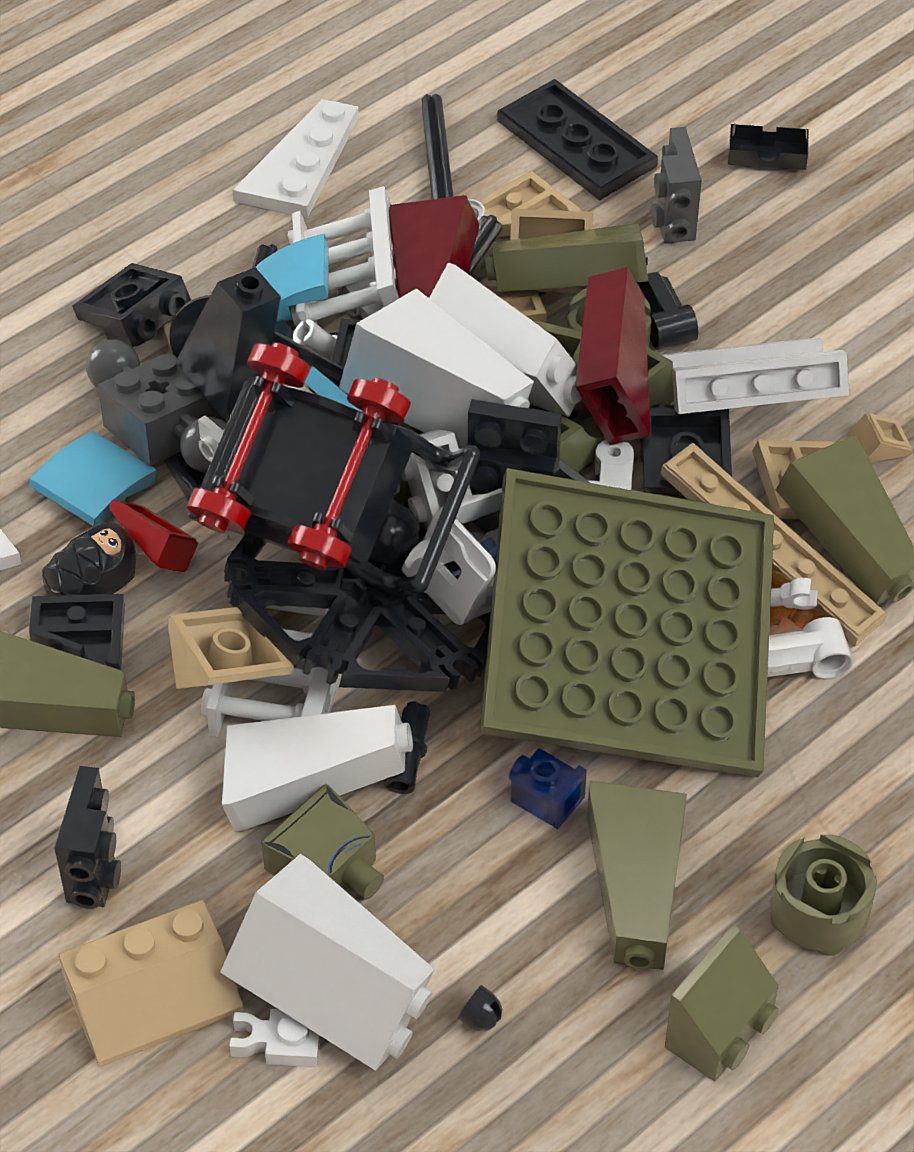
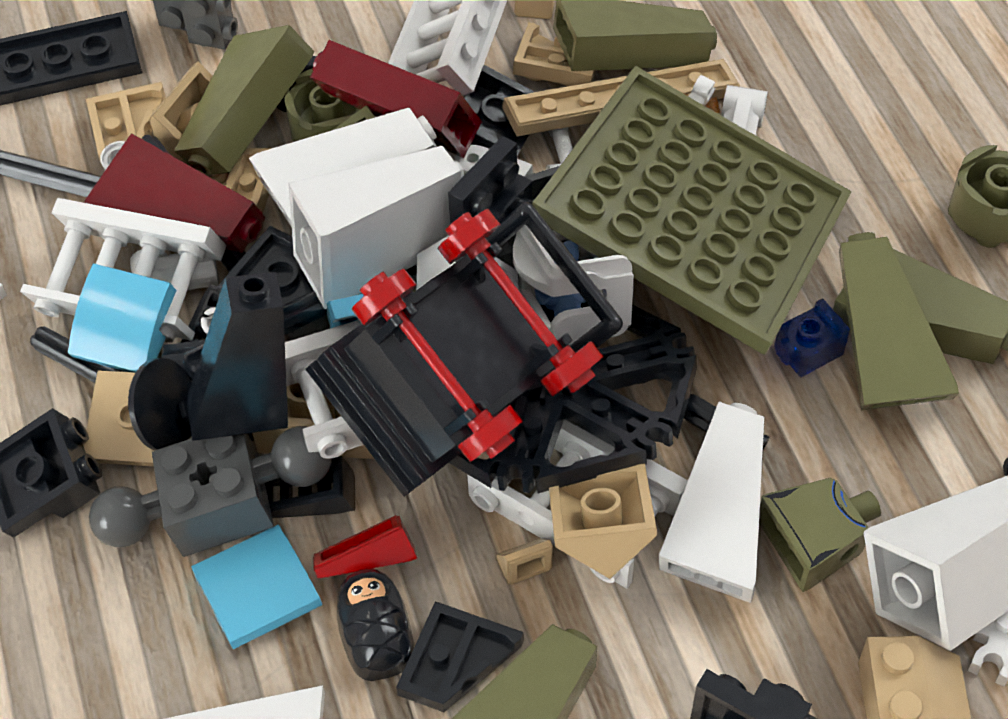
camera: 65 degrees left, 5 degrees up
(567, 826) = (890, 336): none -> olive slope

